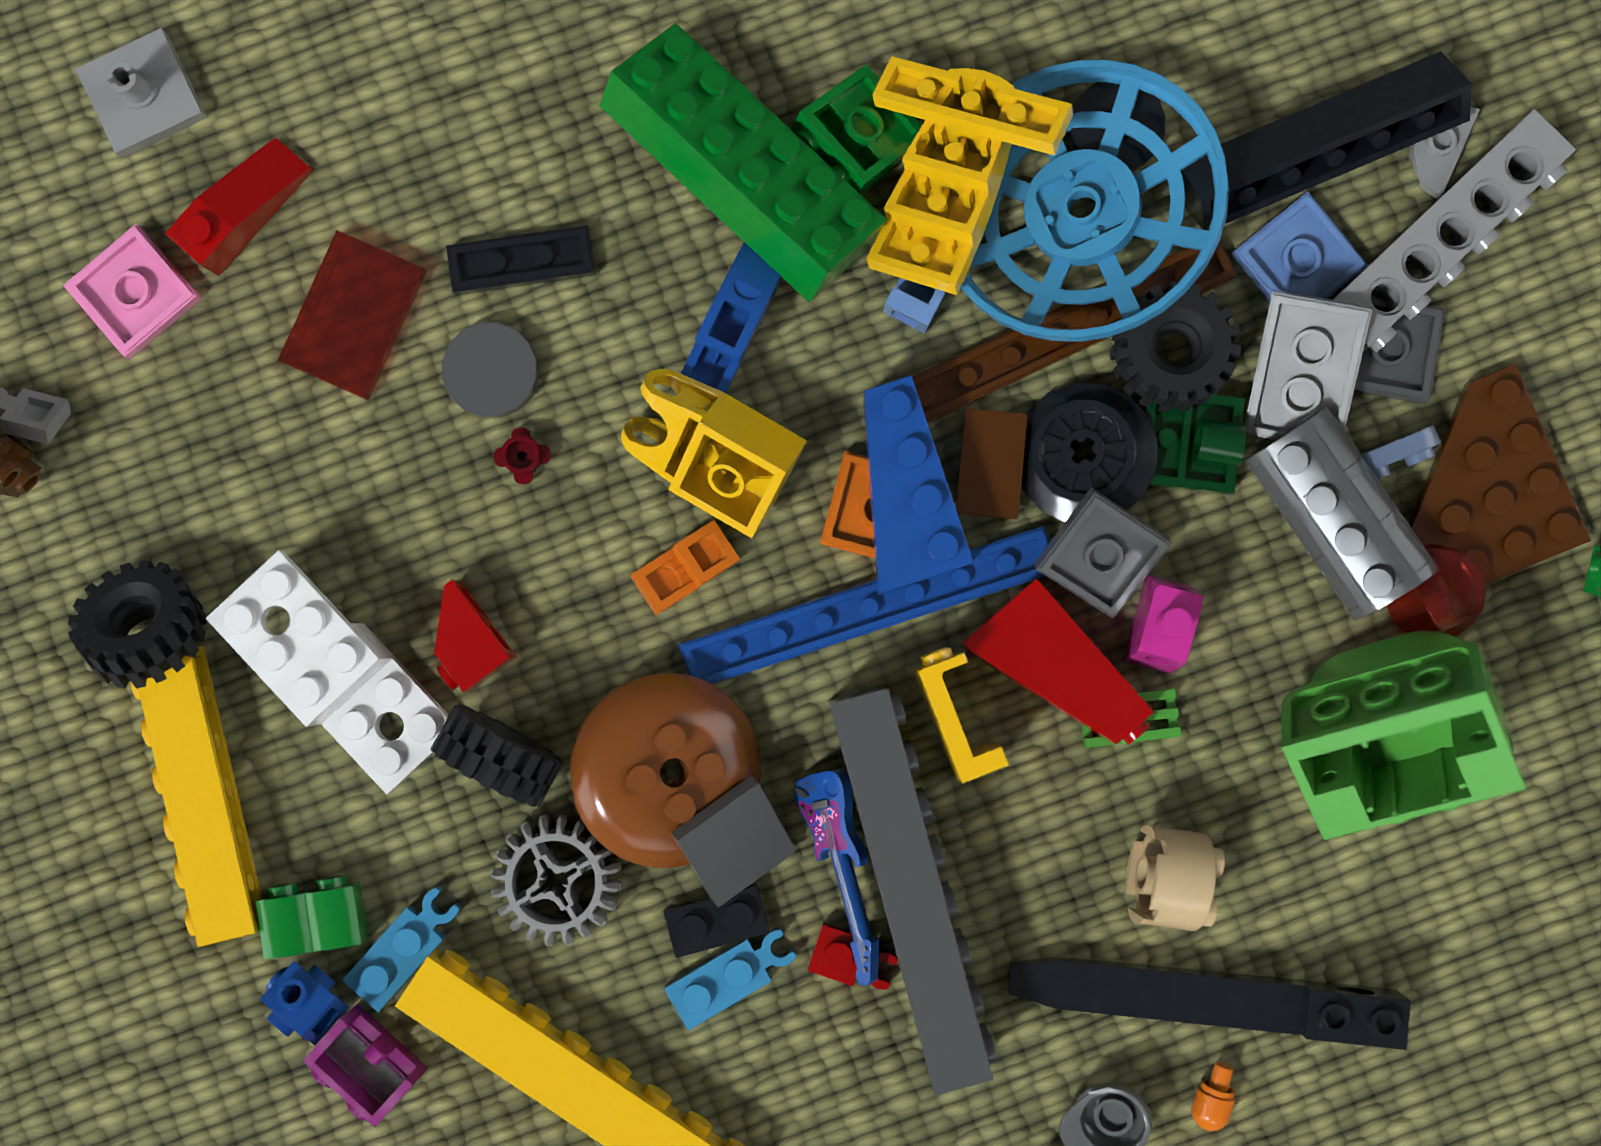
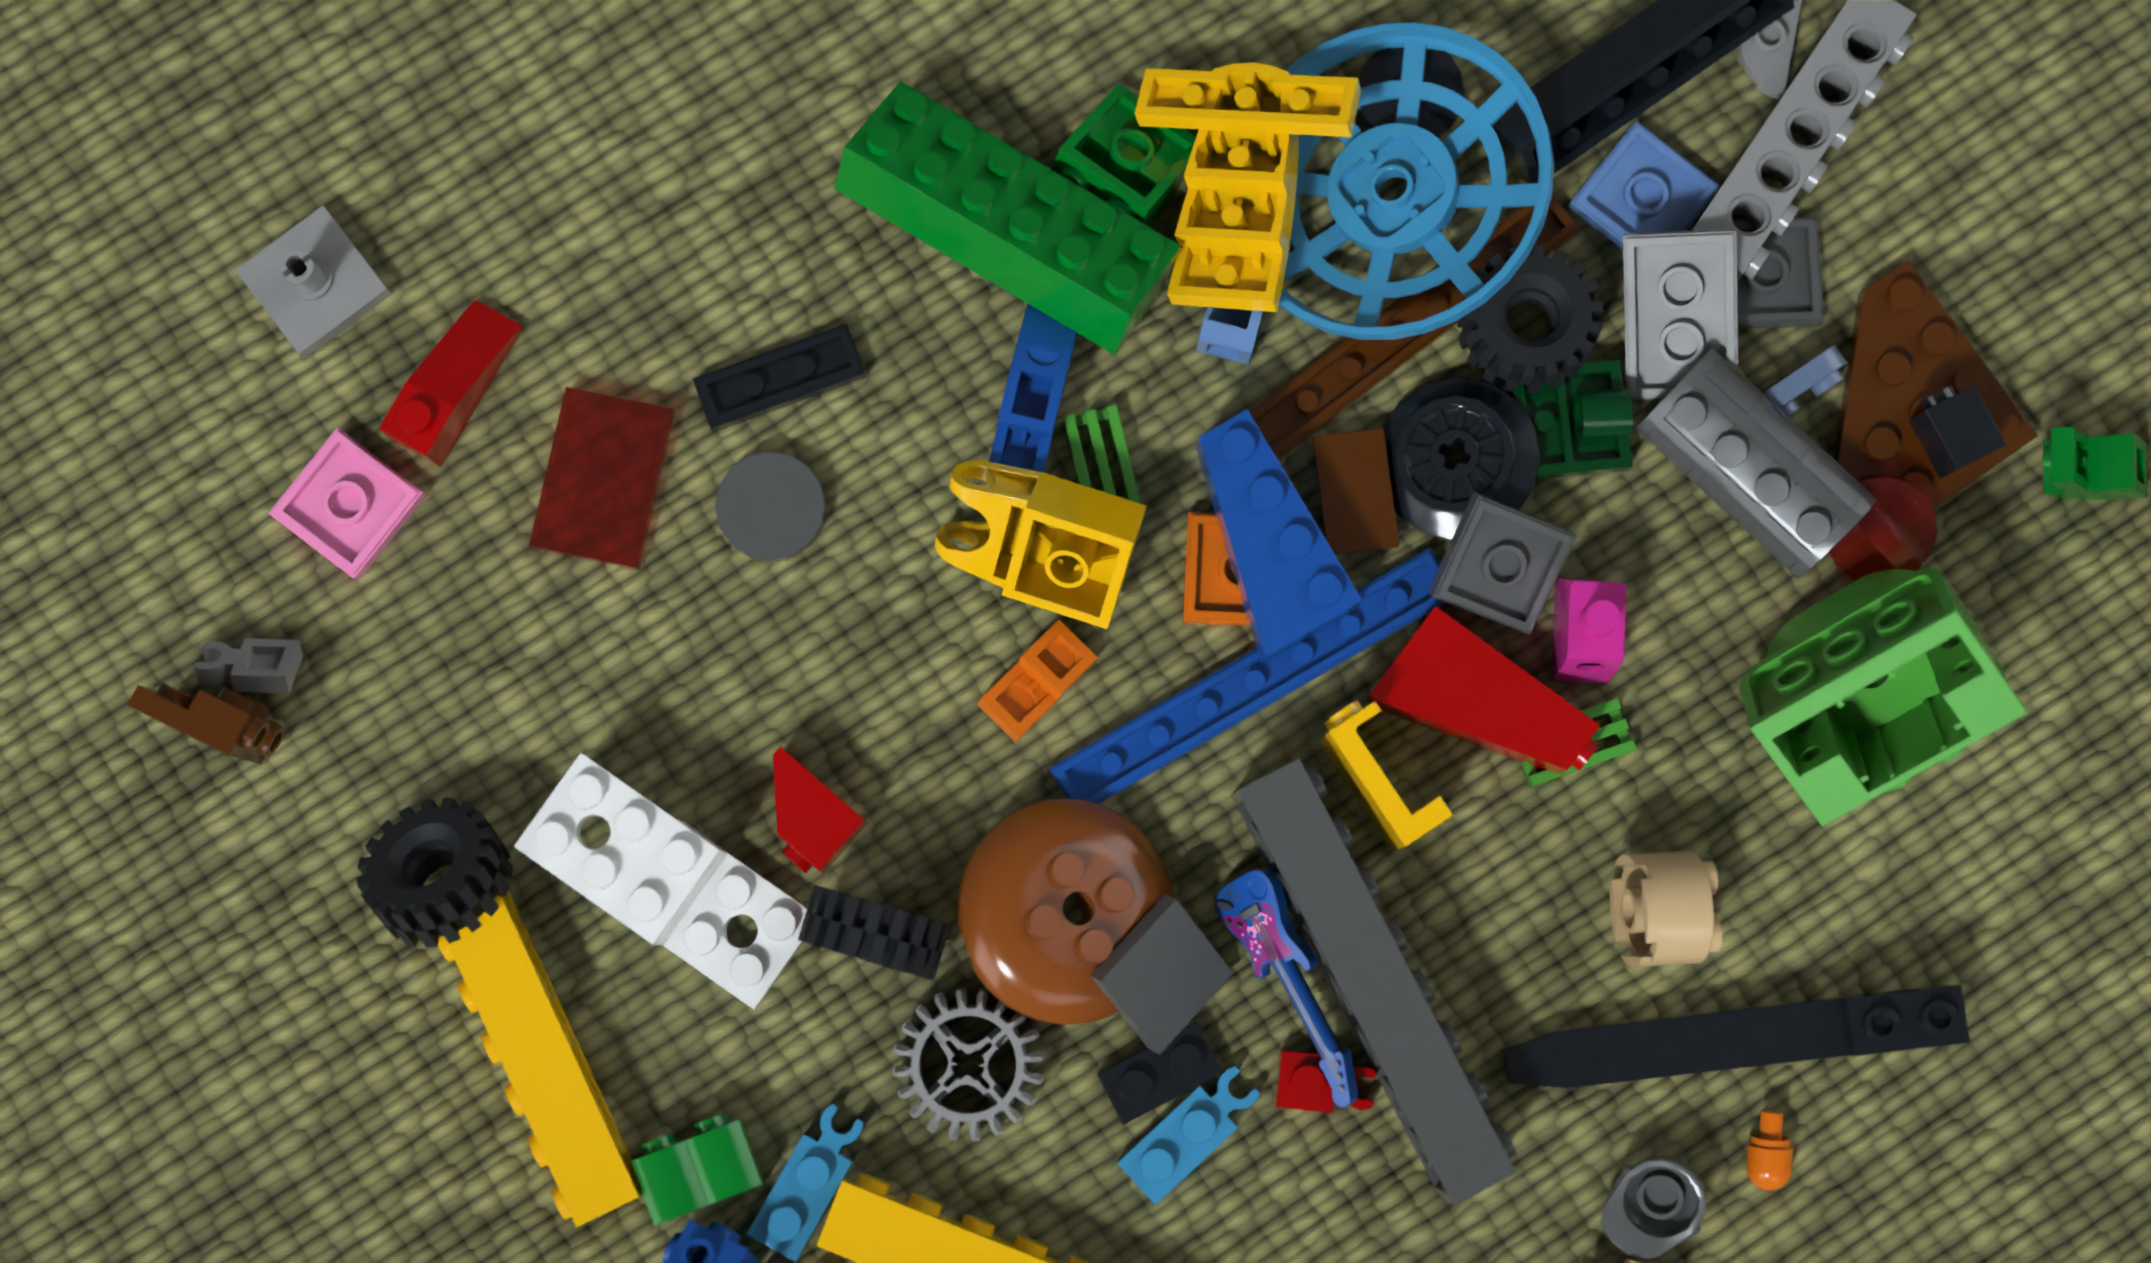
camera: 20 degrees left, 5 degrees down
(508, 455) = (823, 579): dark red plate -> none
(779, 352) = (1092, 419): none -> bright green tile
(1522, 522) = (1956, 429): none -> black brick

